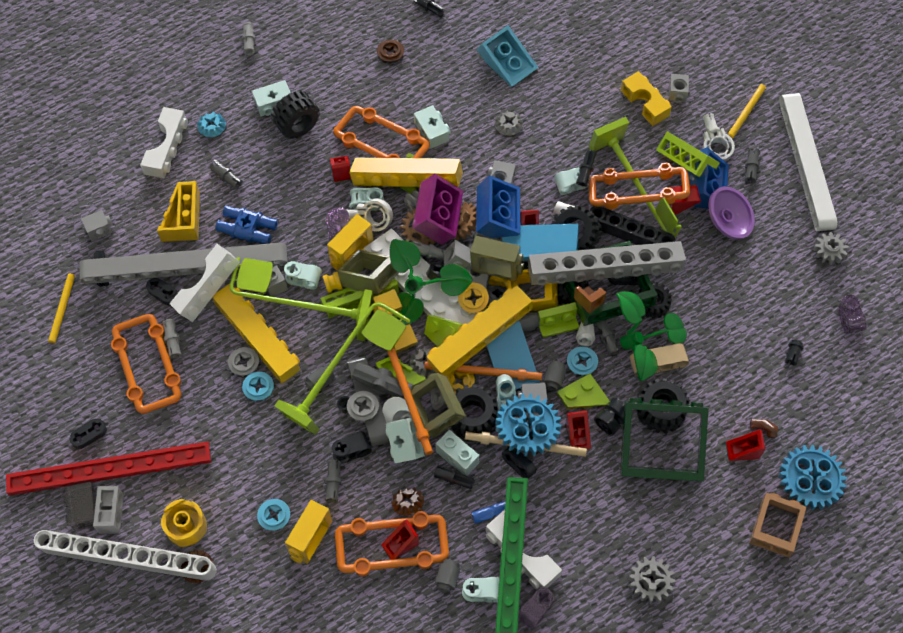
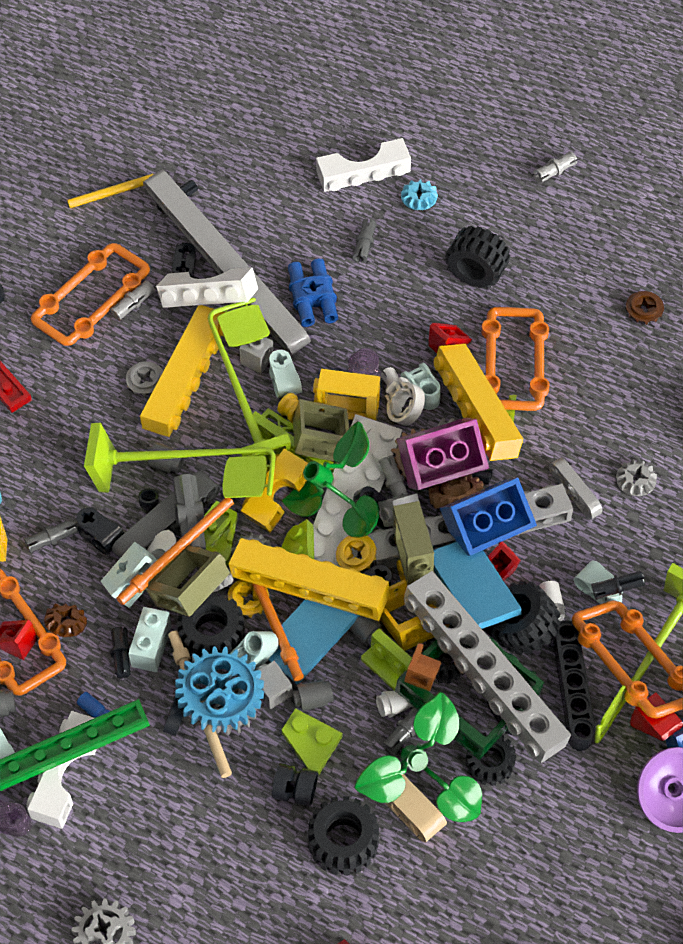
camera: 60 degrees right, 5 degrees down
(97, 225) = (223, 164): light grey brick -> none
(182, 216) = (284, 227): yellow wedge -> none
(253, 380) = (130, 400): medium azure gear -> none
(268, 96) = (495, 222): light aqua brick -> none
(360, 398) = (137, 510): light grey gear -> none
(431, 126) = (567, 399): light aqua brick -> none
(487, 157) = (573, 484): none -> light grey beam
(578, 429) = (254, 755): red slope -> none
(585, 354) = (351, 706): medium azure gear -> none
(663, 473) = (250, 874): dark green window -> none

